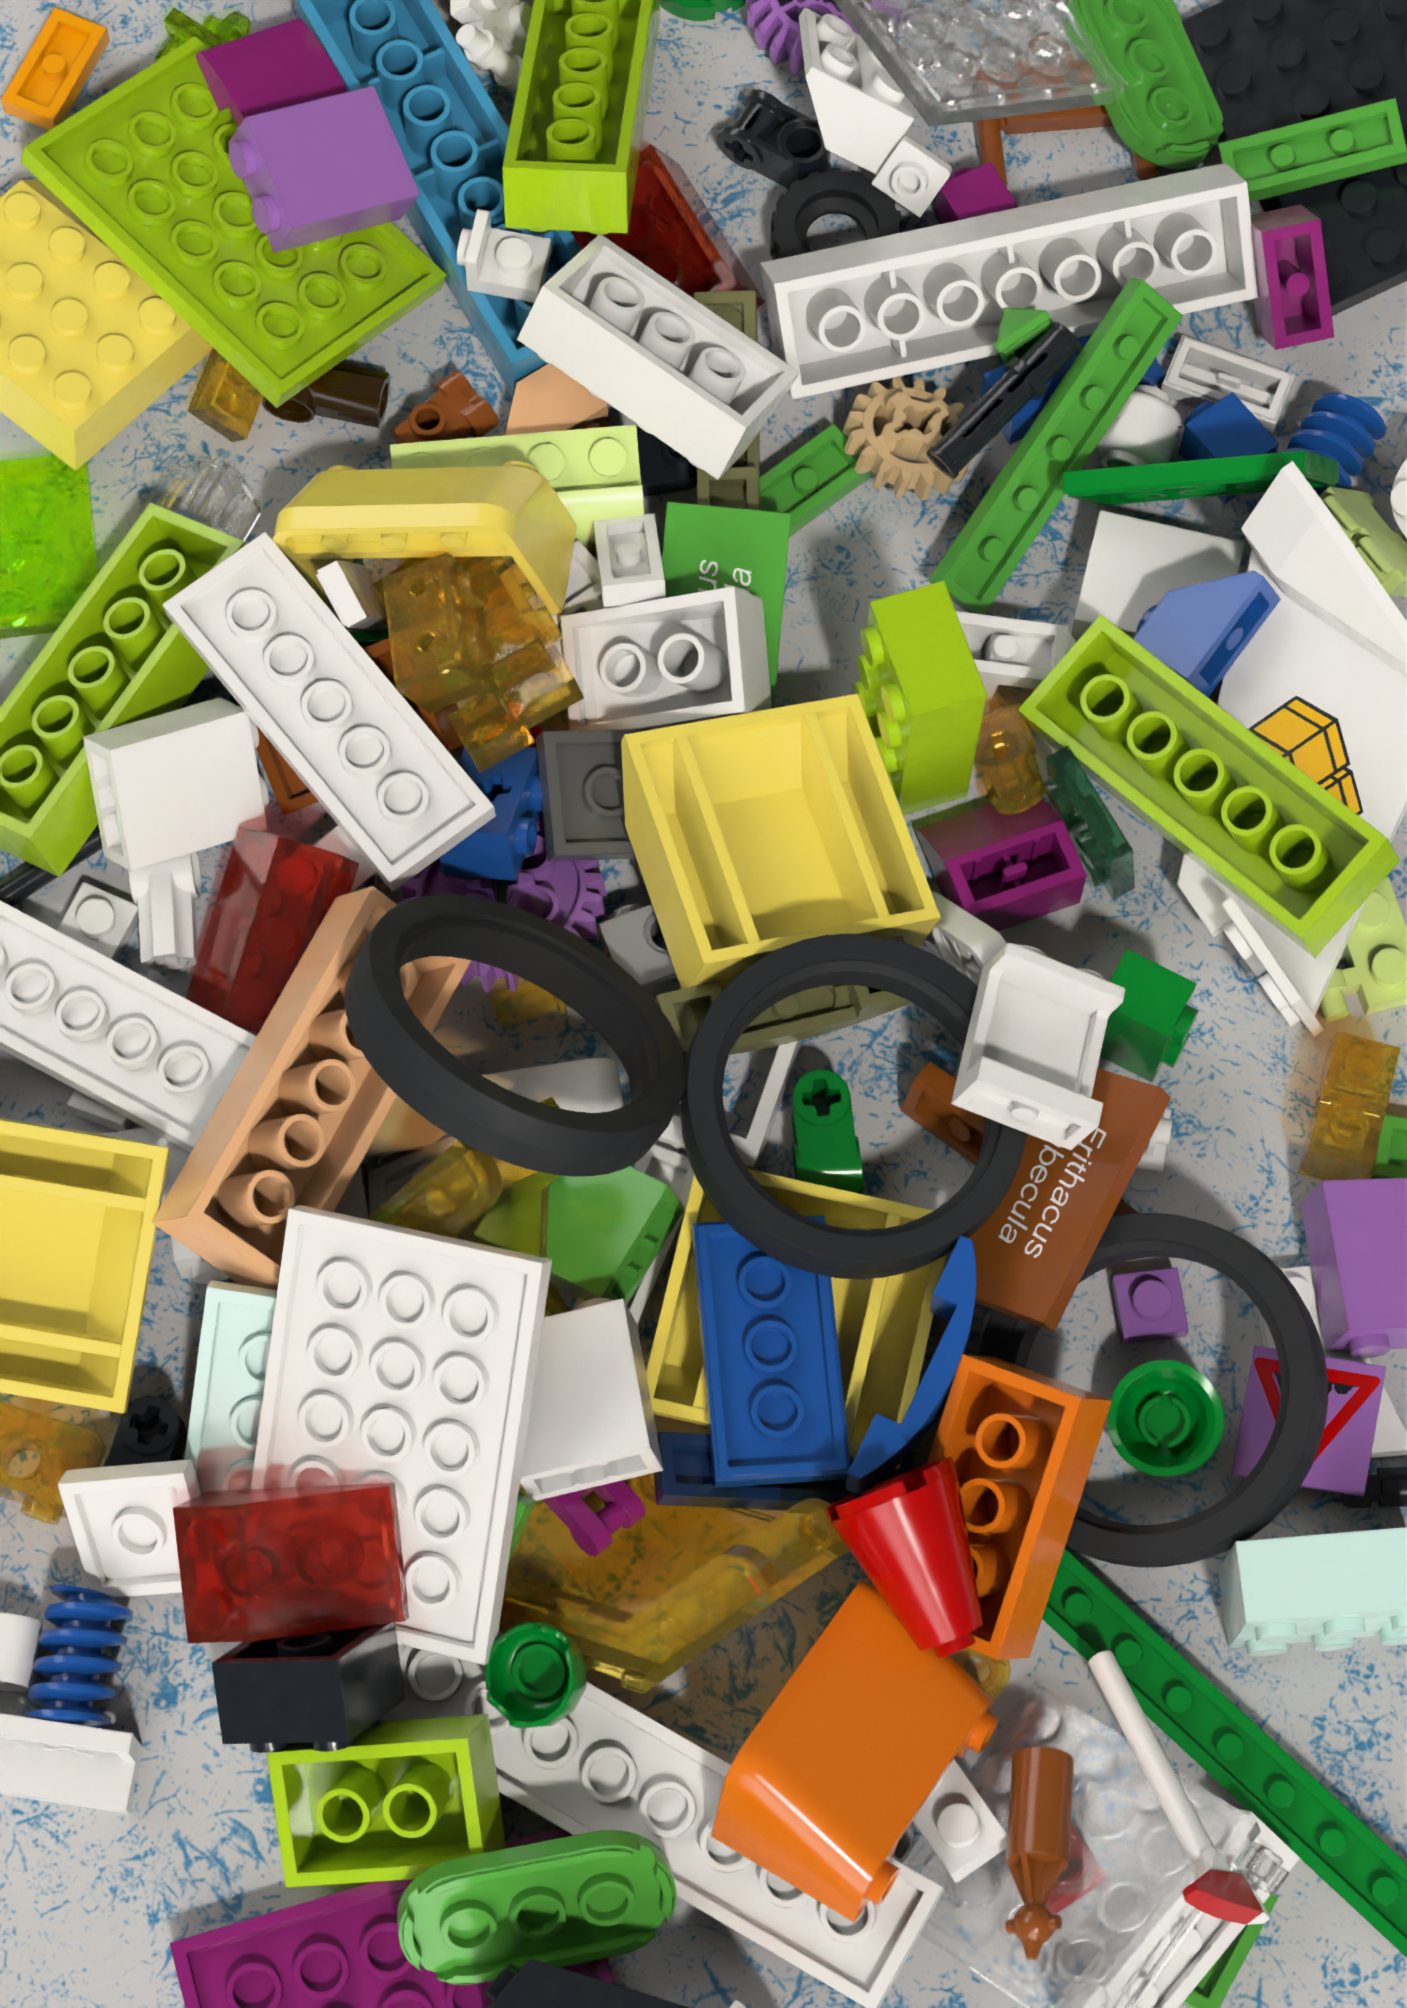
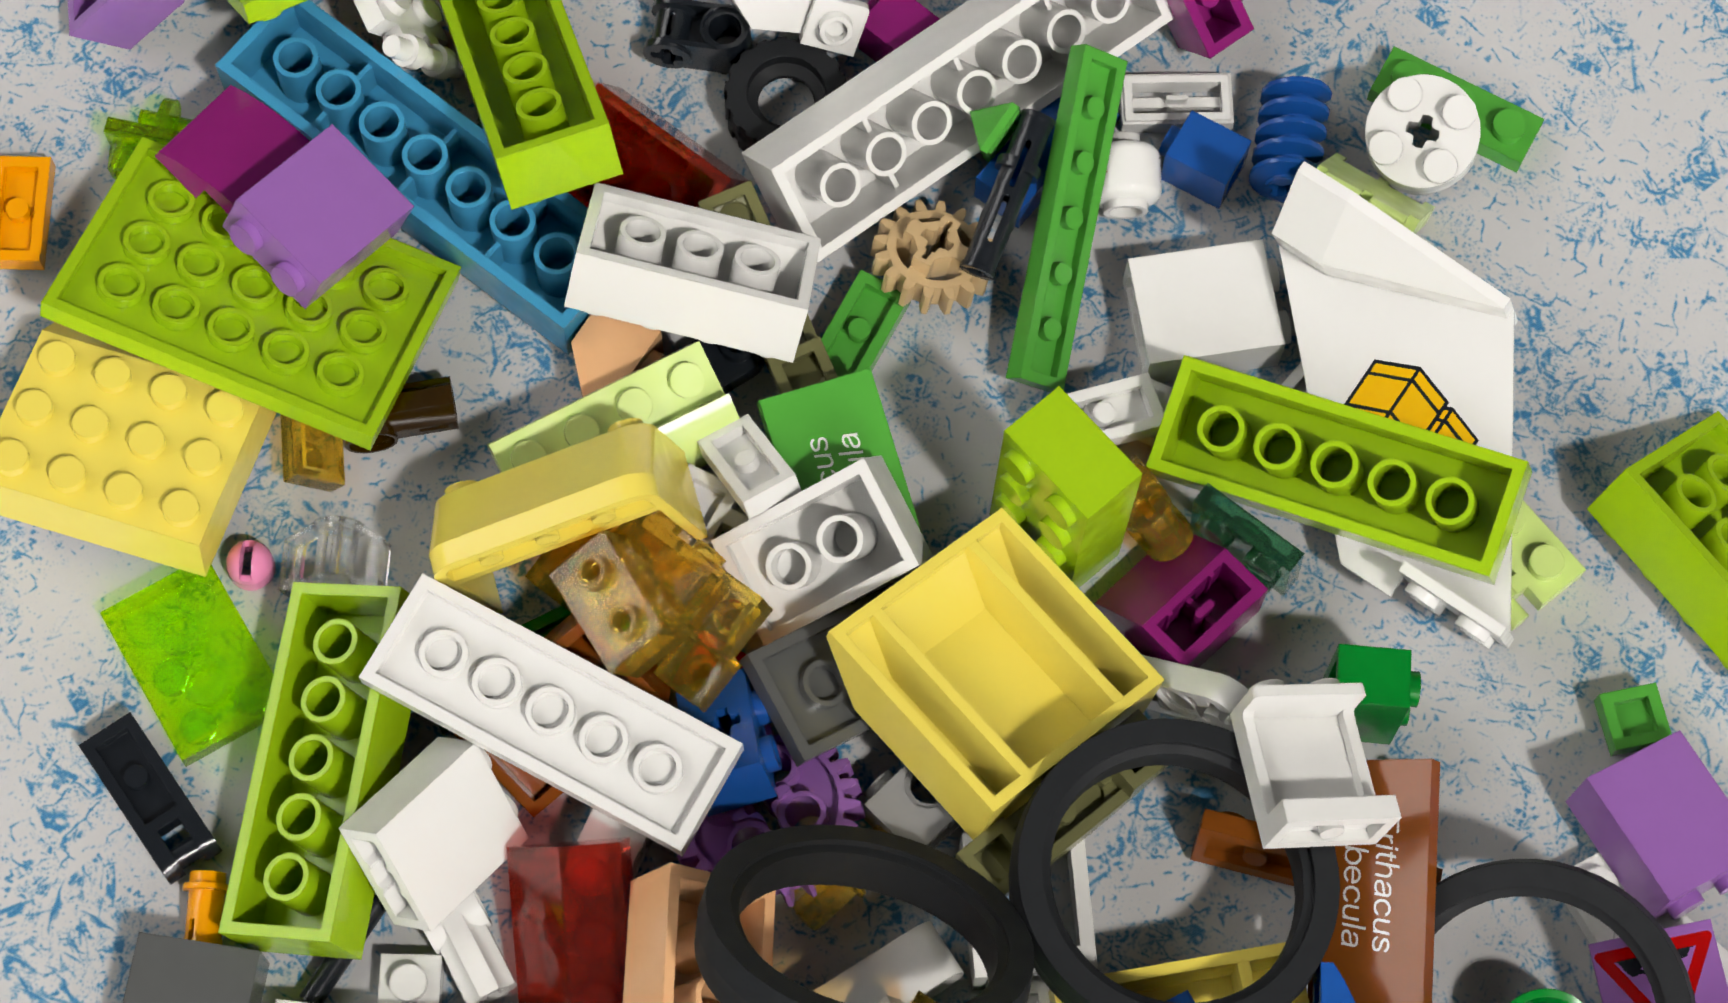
camera: 25 degrees left, 0 degrees up
(133, 484) = (261, 565): none -> bright pink hinge
(352, 595) = (521, 598): white tile -> none
(448, 414) = (522, 389): dark orange plate -> none
(503, 260) = (517, 238): white bracket -> none
(826, 1145) = (1149, 923): green piece -> none
(1149, 1305) = (1479, 944): medium lavender plate -> none
(1195, 478) = (1206, 200): green tile -> none
(1207, 626) = (1272, 330): slope -> none
(1349, 1109) = (1570, 703): clear yellow brick -> none

